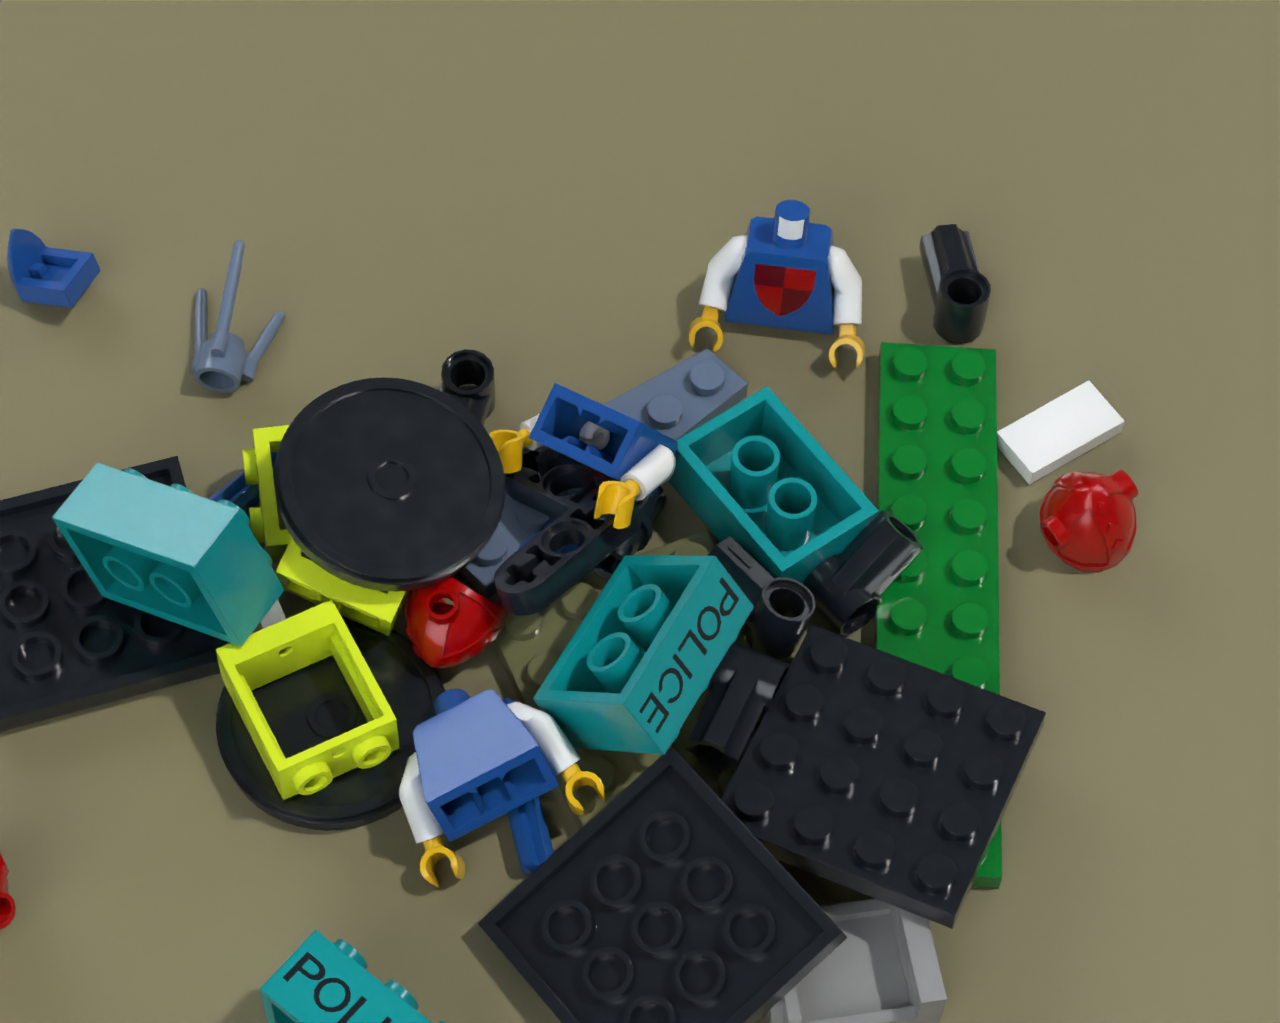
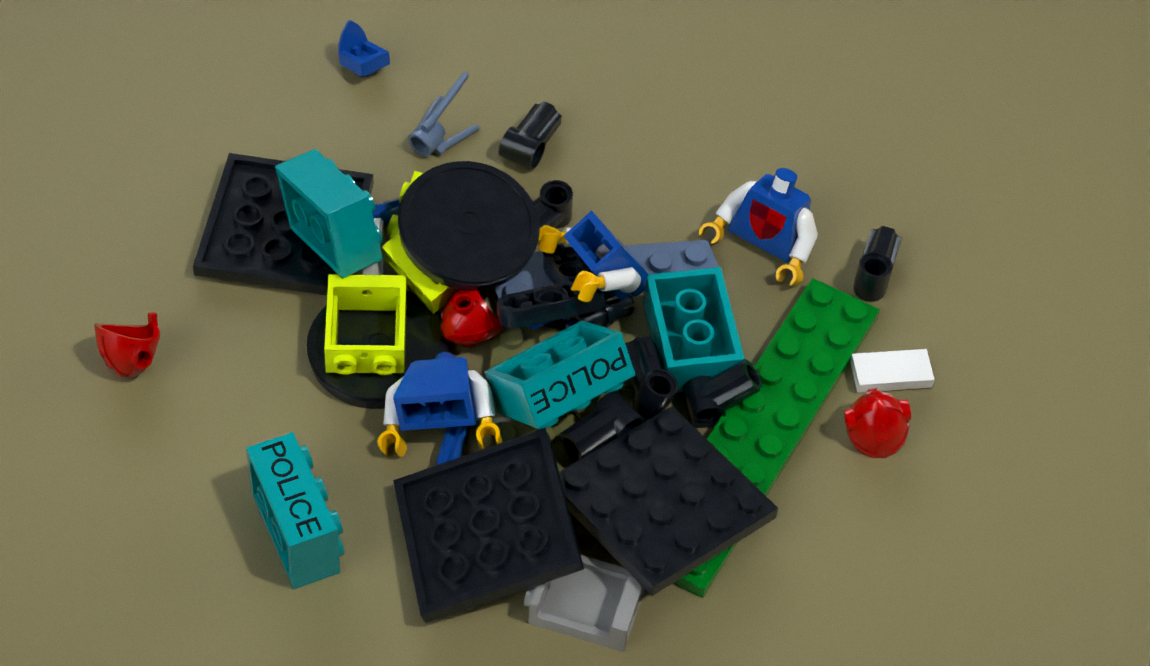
camera: 25 degrees right, 5 degrees down
(372, 305) = (528, 141): none -> black piece

